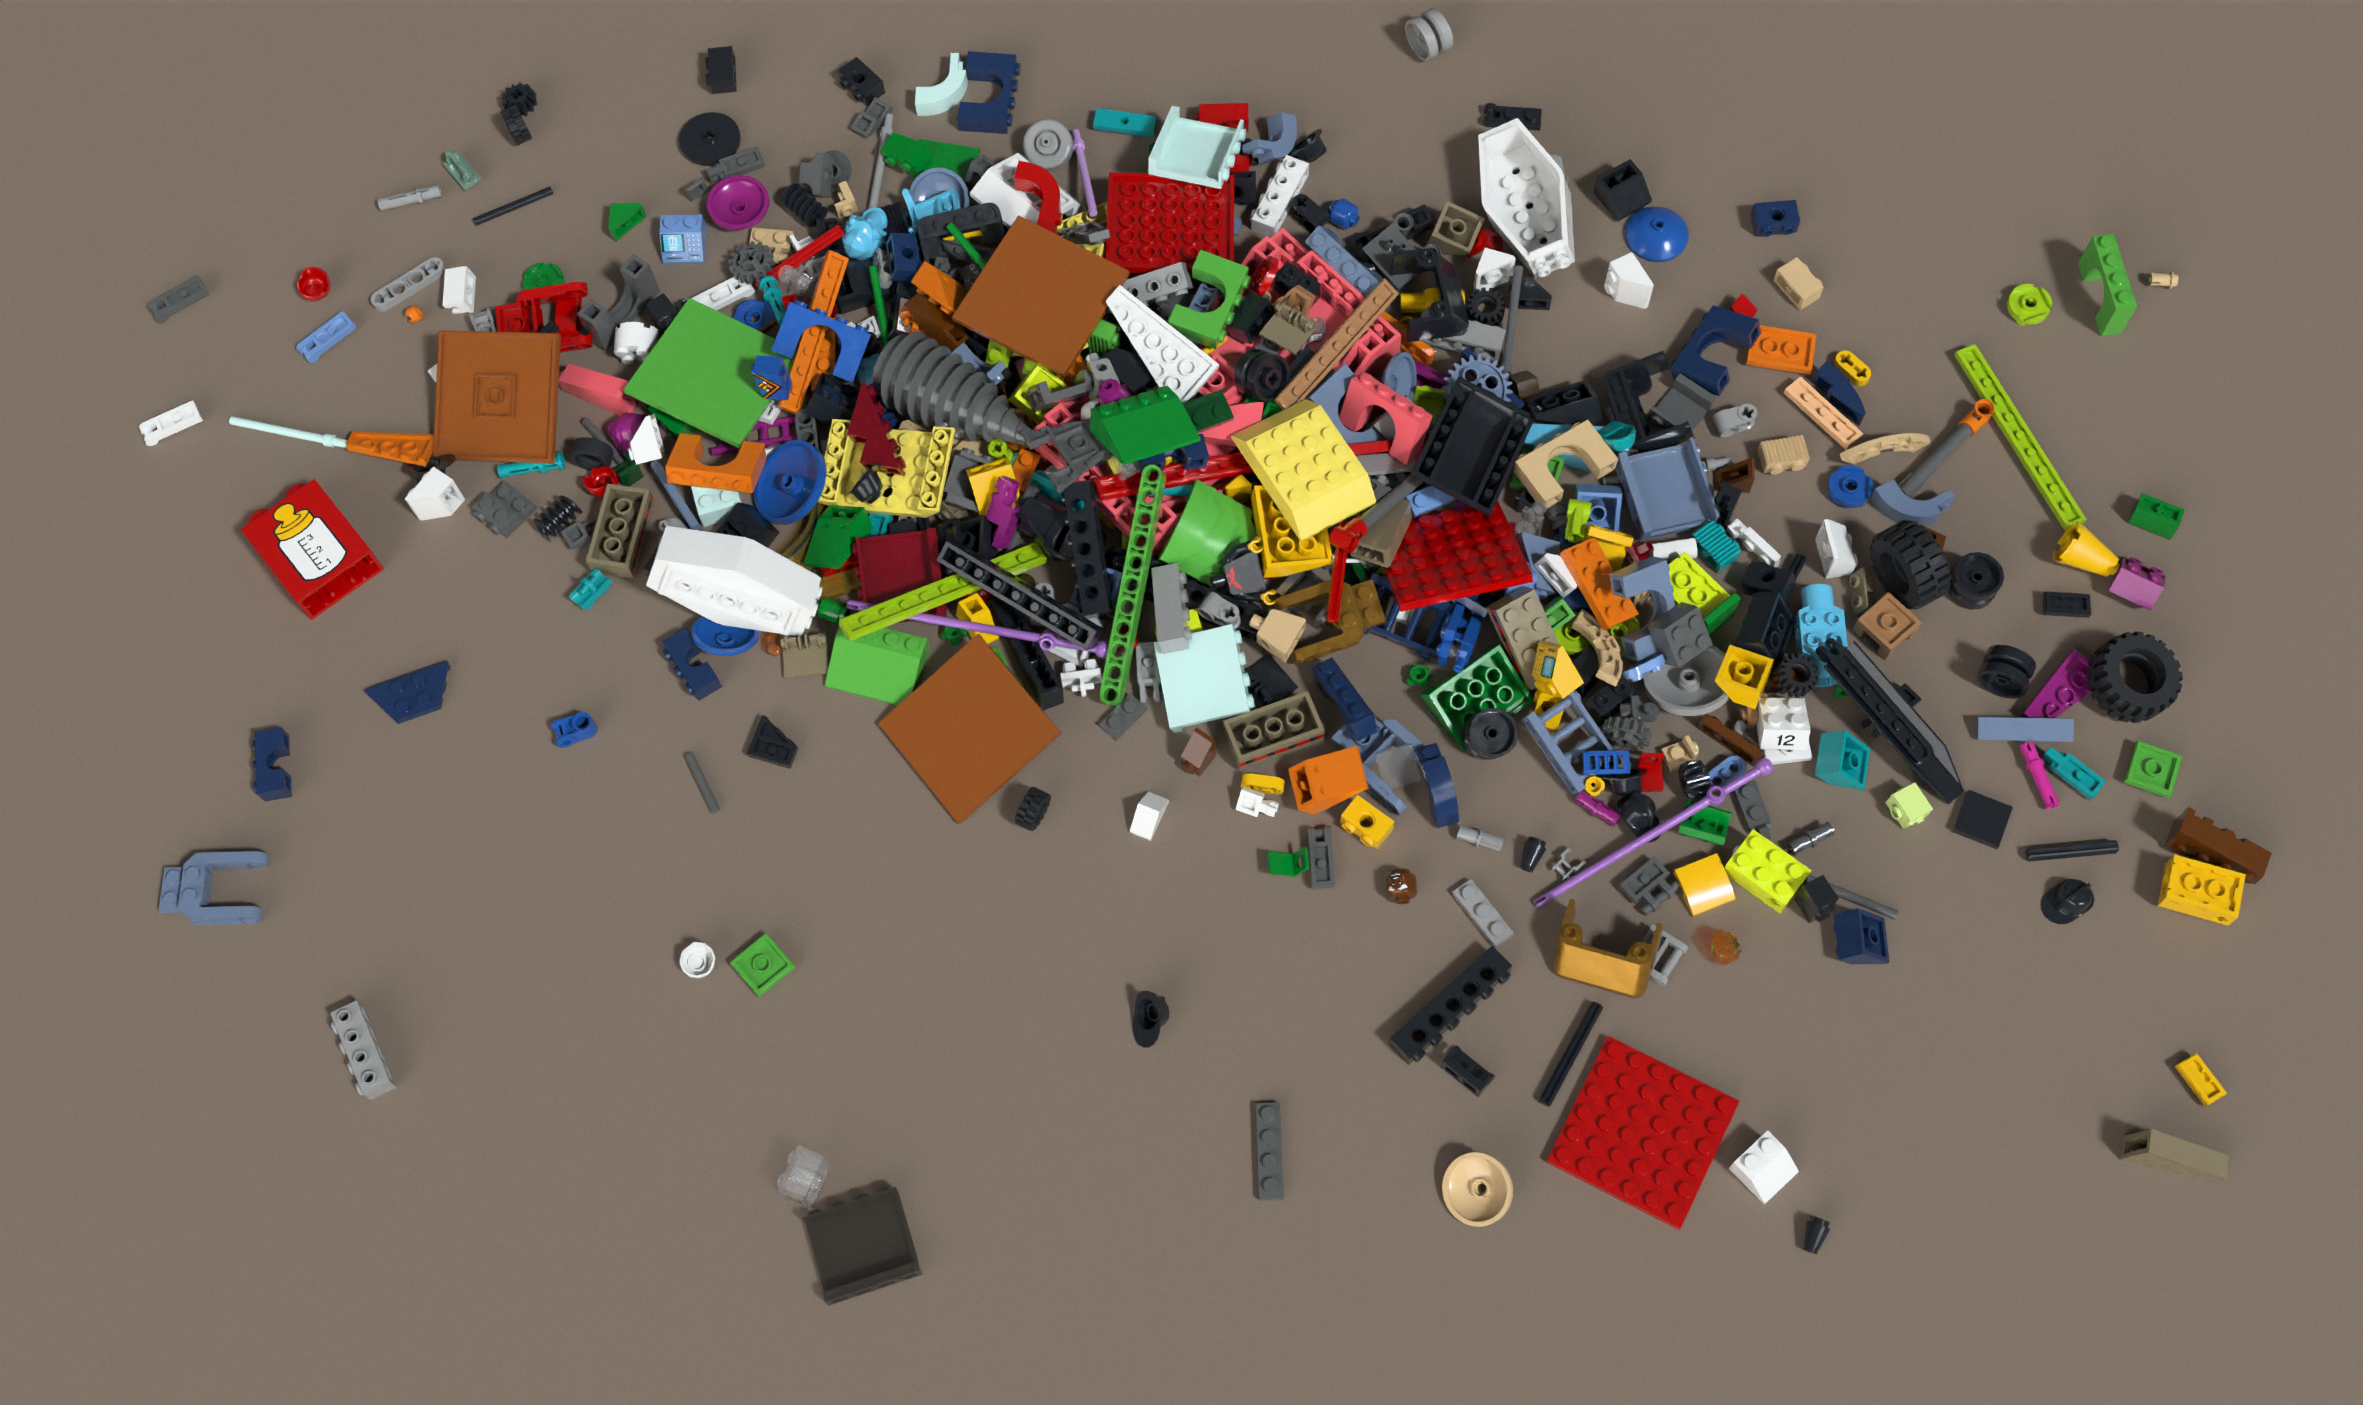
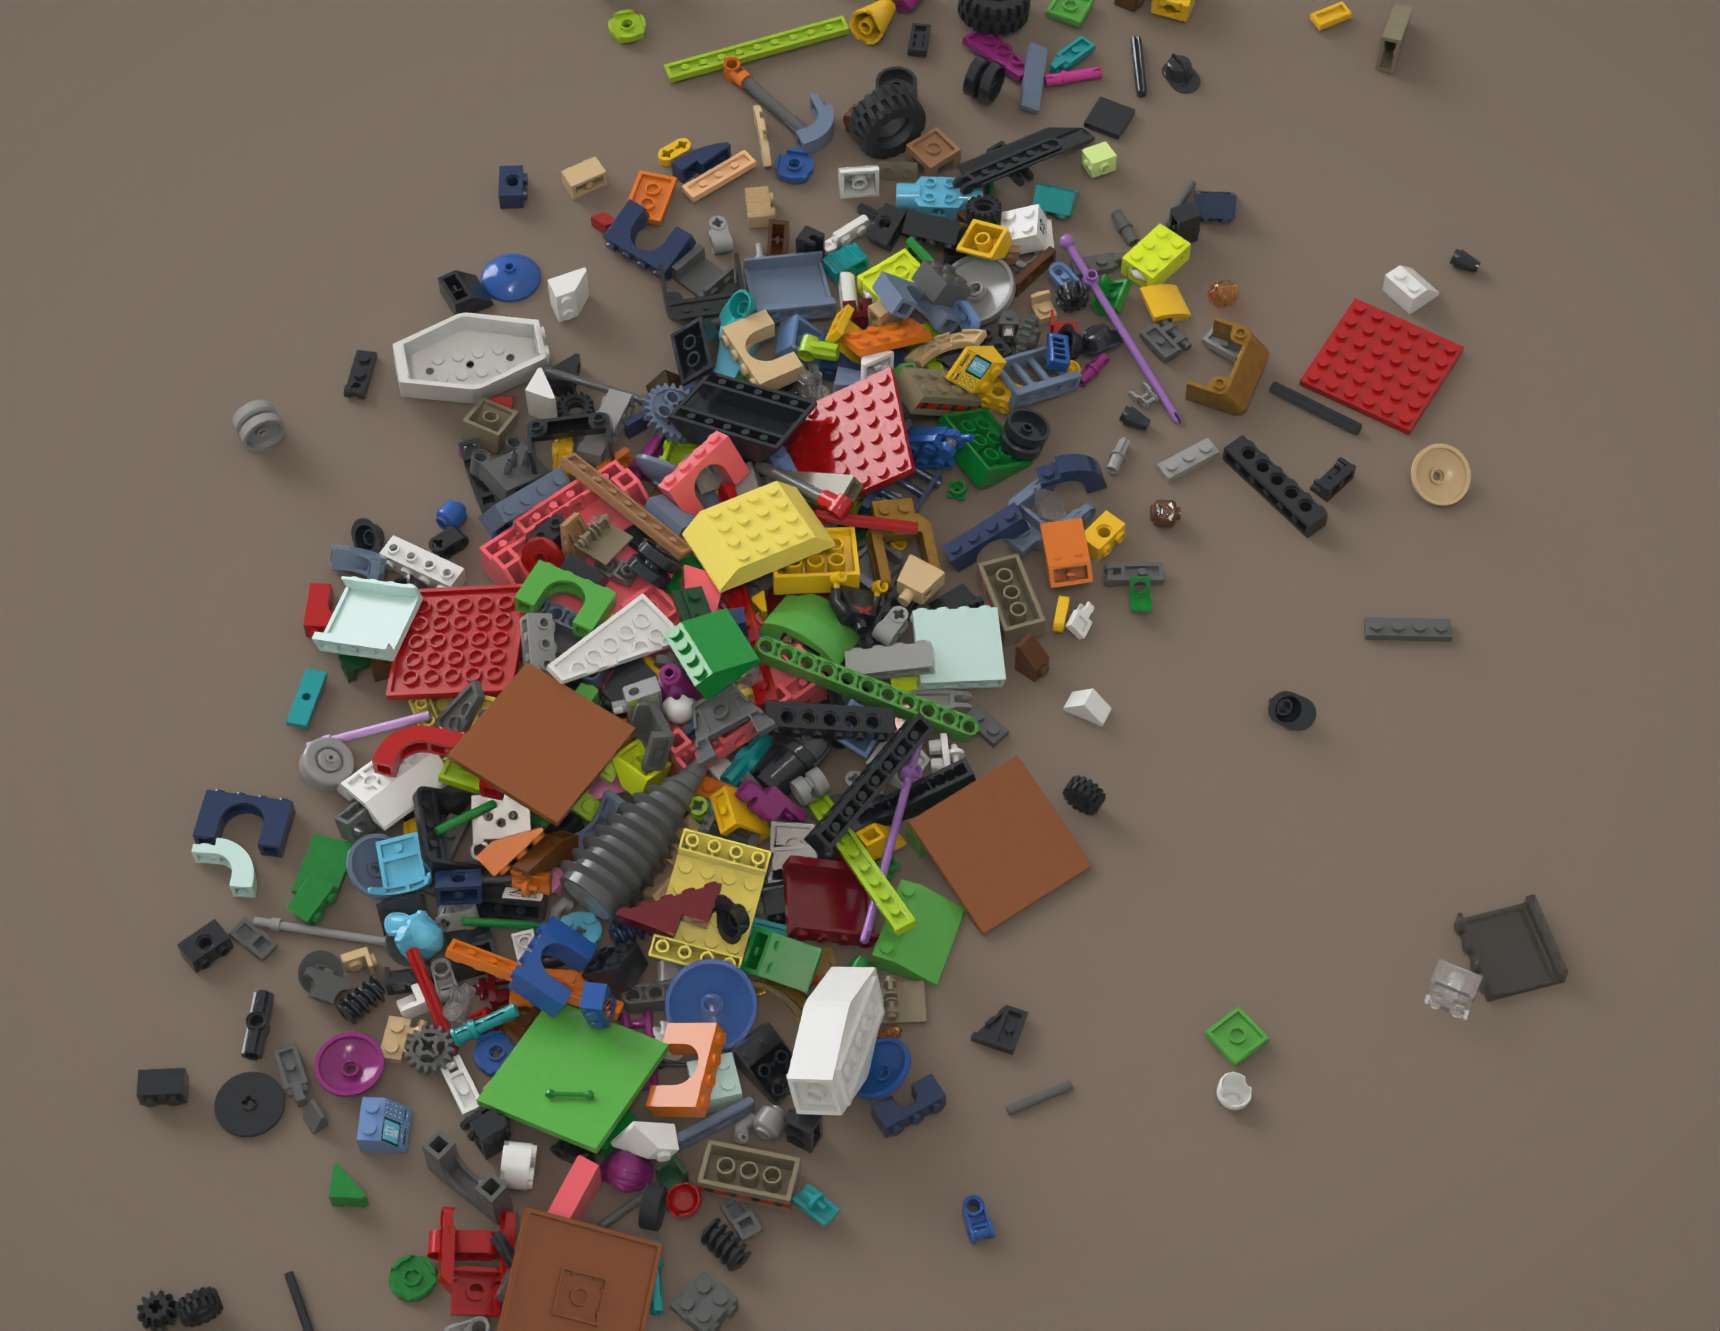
camera: 90 degrees left, 10 degrees down
(683, 381) = (551, 1093): none -> green hinge
(783, 132) = (256, 1036): none -> black piece
(1024, 546) = (809, 786): none -> light grey wheel

